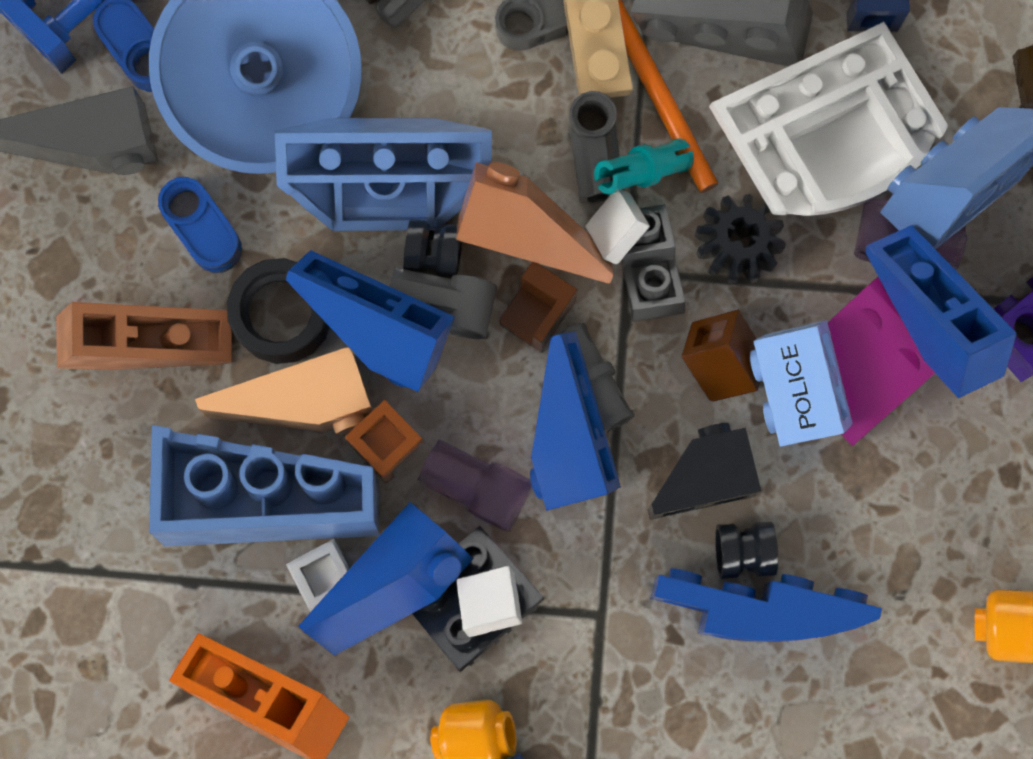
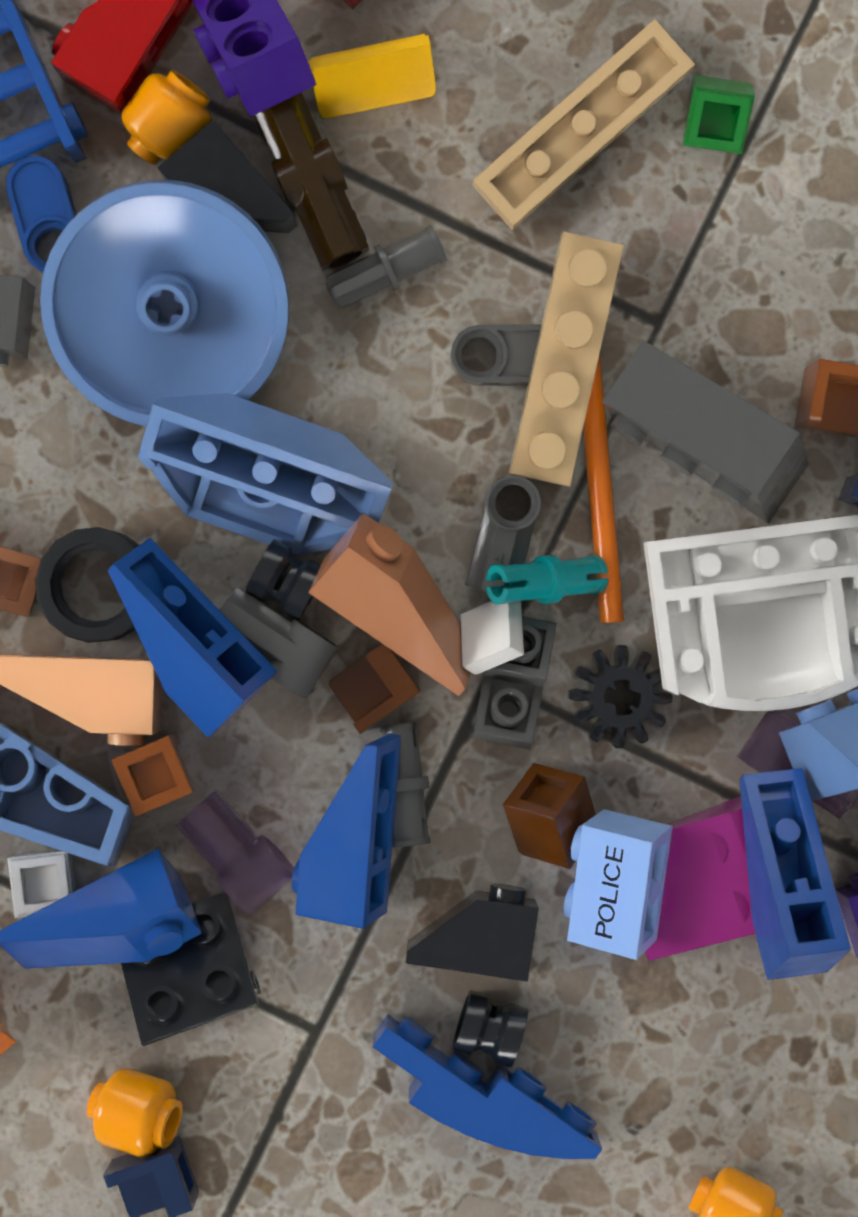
camera: 25 degrees right, 10 degrees up
(205, 232) = (49, 466): blue piece -> none
(489, 601) = (198, 989): white tile -> none

